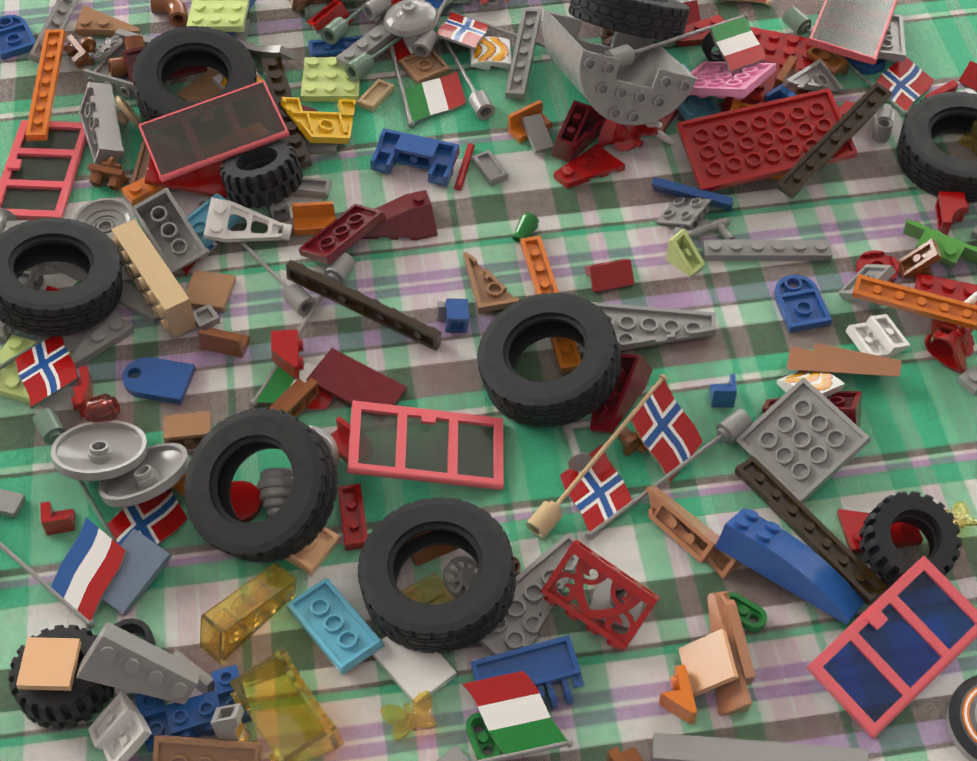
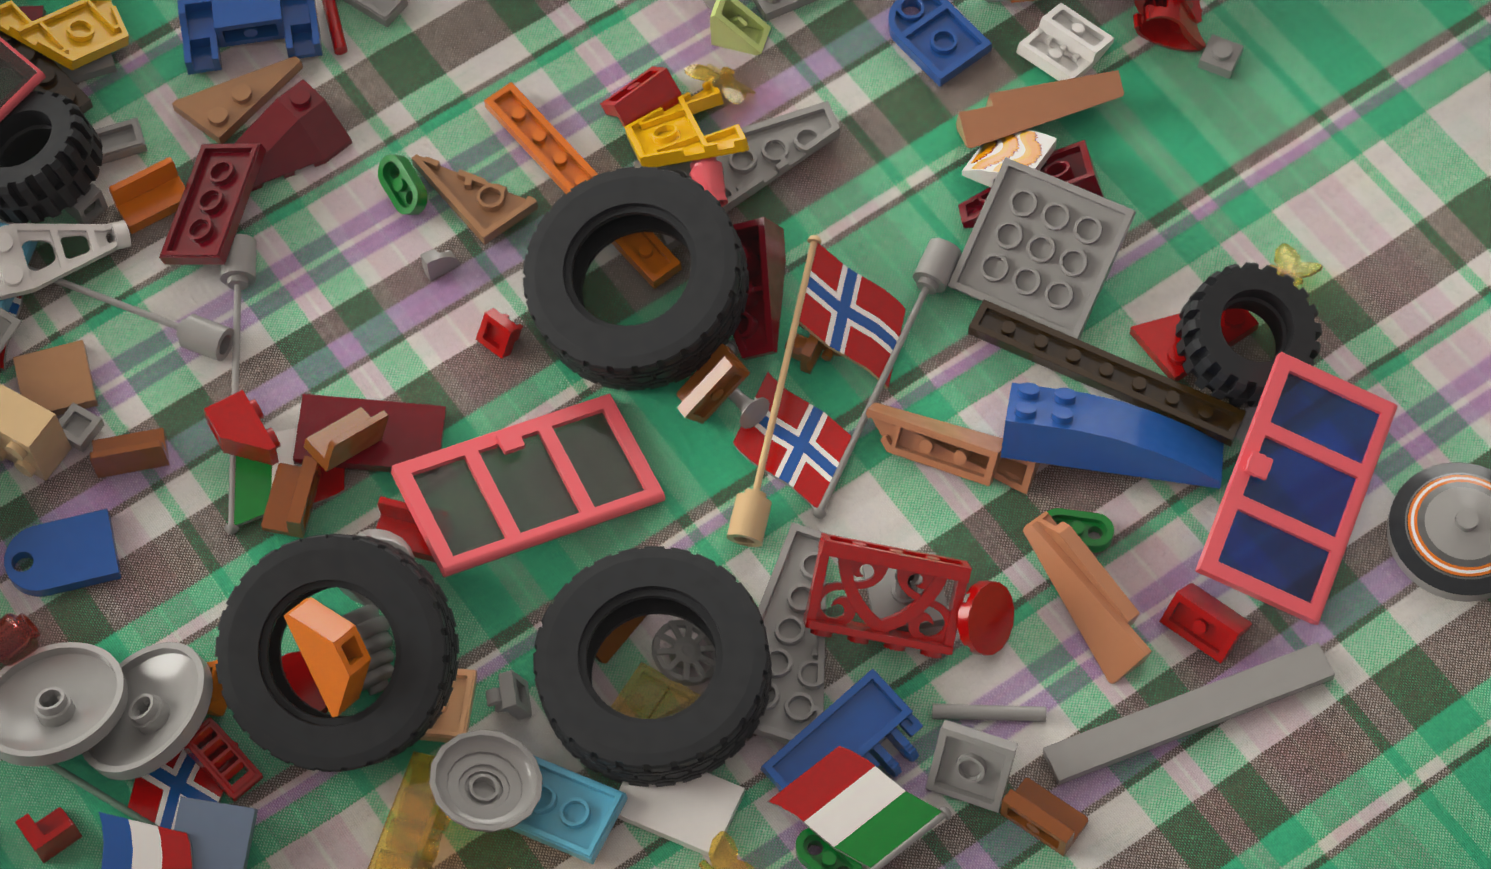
camera: 25 degrees left, 10 degrees up
(167, 506) = (208, 730): none -> red slope
(187, 428) = (164, 612): medium nougat brick -> none
(251, 480) = (331, 651): none -> orange slope
(303, 595) = (485, 780): none -> light grey hat
(339, 378) = (346, 438): none -> dark orange panel
(349, 557) = (511, 695): none -> light grey tile
(352, 516) = (480, 636): red tile -> none
(363, 305) = (310, 306): dark brown plate -> none
(381, 191) = (229, 105): none -> medium nougat wing
(450, 265) = (402, 184): none -> green plate
(457, 315) = (460, 261): blue panel -> none
(458, 360) = (498, 333): none -> red tile
(526, 226) = (481, 74): green cone -> none
(562, 436) = (711, 385): none -> dark orange panel
(600, 720) = (971, 765): none -> light grey tile
(618, 296) = (675, 137): none -> yellow wing
(622, 325) = (710, 175): none -> coral cone
(631, 696) = (989, 712): none -> light grey bar
(656, 637) = (986, 617): none -> red tile
(662, 283) = (732, 89): none -> clear yellow piece
(680, 699) = (1060, 688): orange slope -> none
(709, 662) = (1068, 622): light nougat tile -> none
(723, 394) = (898, 222): blue panel -> none
(798, 703) = (1204, 621): none -> red panel

